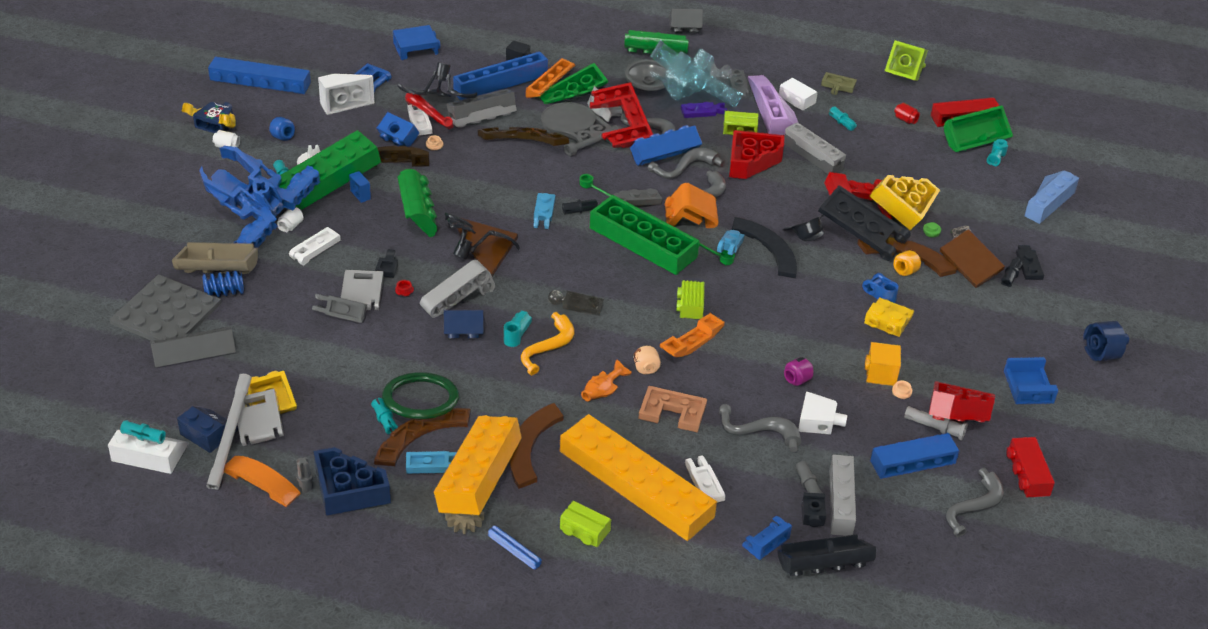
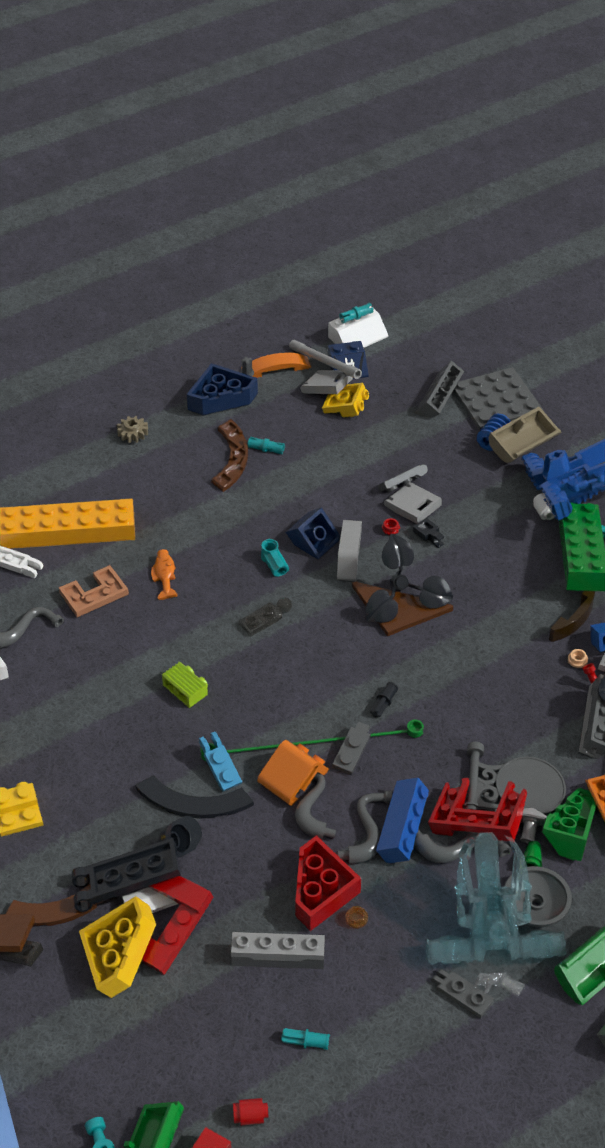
camera: 135 degrees right, 5 degrees up
(314, 245) = (497, 506): white plate -> none
(360, 186) = (548, 565): blue piece -> none
(417, 200) = (484, 580): green container -> none
(417, 413) = (261, 491): dark green wedge -> none
(428, 461) = (194, 443): dark azure hinge -> none
(478, 465) = (156, 445): light orange brick -> none
(514, 547) = (83, 440): axle -> none
(524, 133) = (528, 733): dark brown tile -> none
(530, 429) = (160, 496): reddish brown tile -> none
(544, 209) = (404, 673): dark azure hinge -> none
(566, 334) = (241, 588): light orange animal -> none
(585, 524) = (56, 477): lime brick -> none
(644, 234) = (292, 705): green brick -> none
(646, 360) = (154, 608): light nougat head -> none
(686, 344) = (146, 651): orange slope -> none
(704, 109) = (444, 916): dark purple plate -> none
(739, 121) = (384, 923): lime brick -> none
(773, 108) = (387, 981): lavender wedge -> none
(798, 94) = (385, 1026): white brick -> none
(798, 371) = (33, 687): magenta head -> none
(838, 83) = (370, 1095): olive plate -> none
(881, 287) = (48, 830): blue piece -> none
(907, 263) = (52, 879): light orange head -> none
(932, 229) = (70, 952): bright green plate -> none

